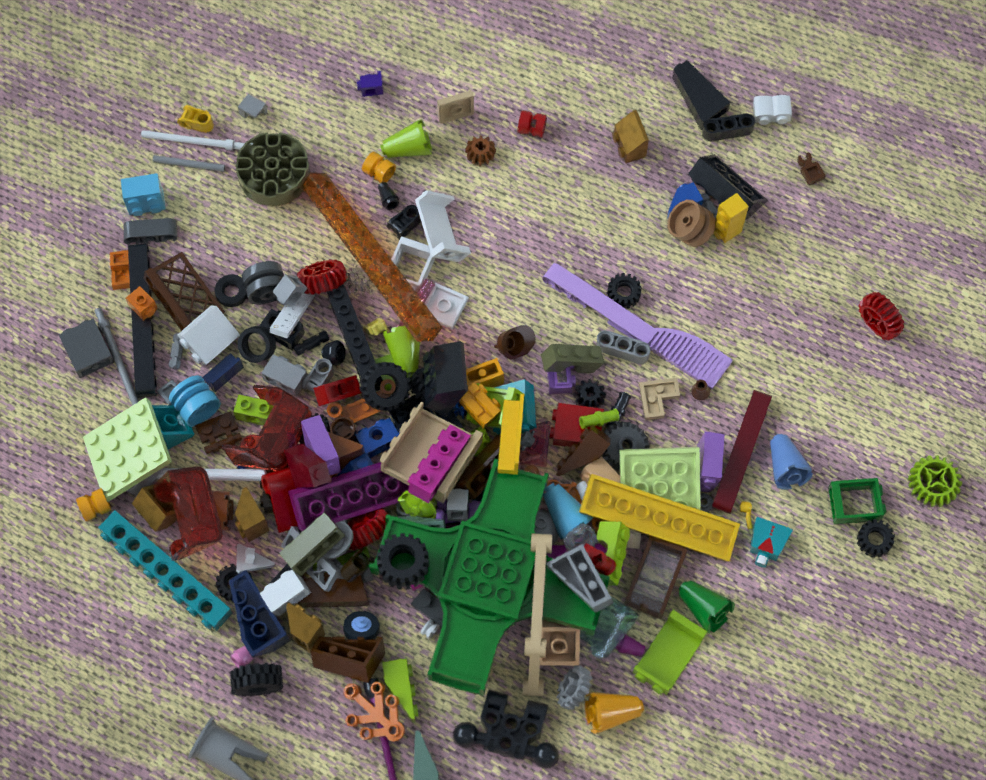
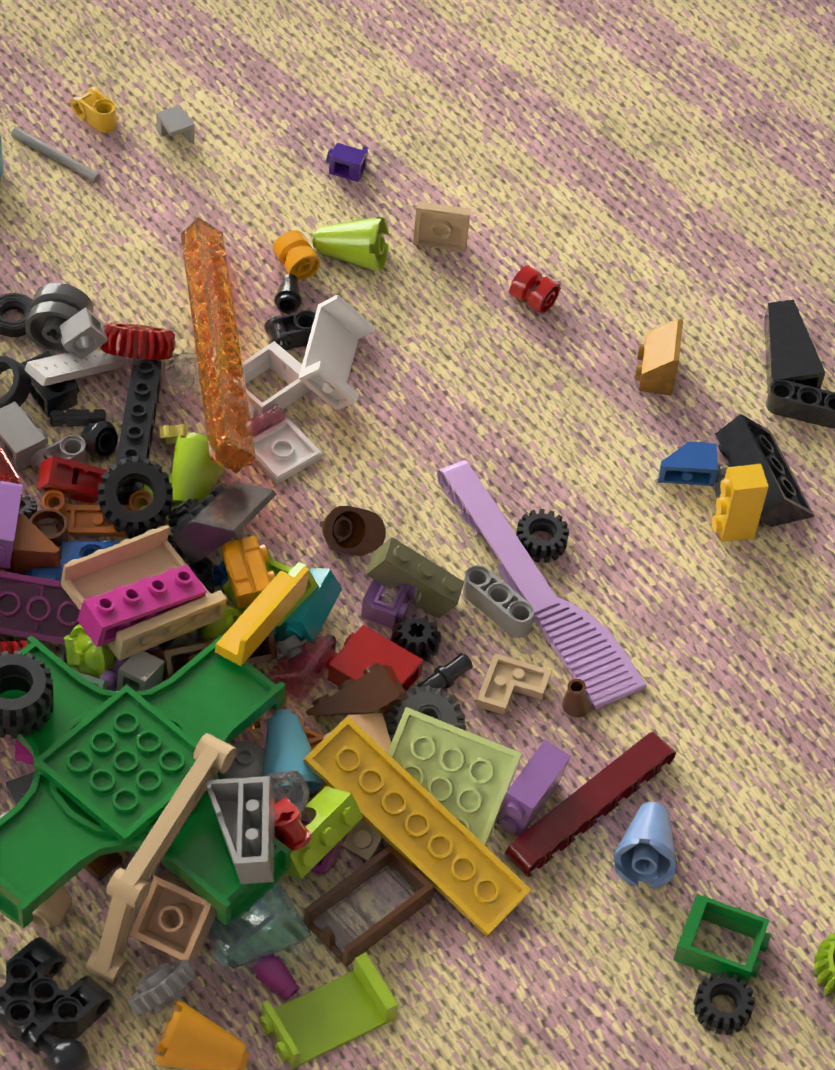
camera: 20 degrees right, 15 degrees down
(228, 144) = (118, 153): white bar -> none
(272, 168) = (155, 198): olive brick -> none
(487, 147) = (446, 292): dark orange gear -> none
(487, 374) = (284, 545): light orange brick -> none
(599, 418) = (408, 665): lime pin -> none
(691, 223) = (682, 488): medium nougat wheel -> none
(706, 508) = (499, 850): dark grey plate -> none
(706, 605) = (420, 975): green cone -> none
(747, 507) = (555, 879): yellow hand -> none
(768, 540) = (562, 933): teal torso -> none

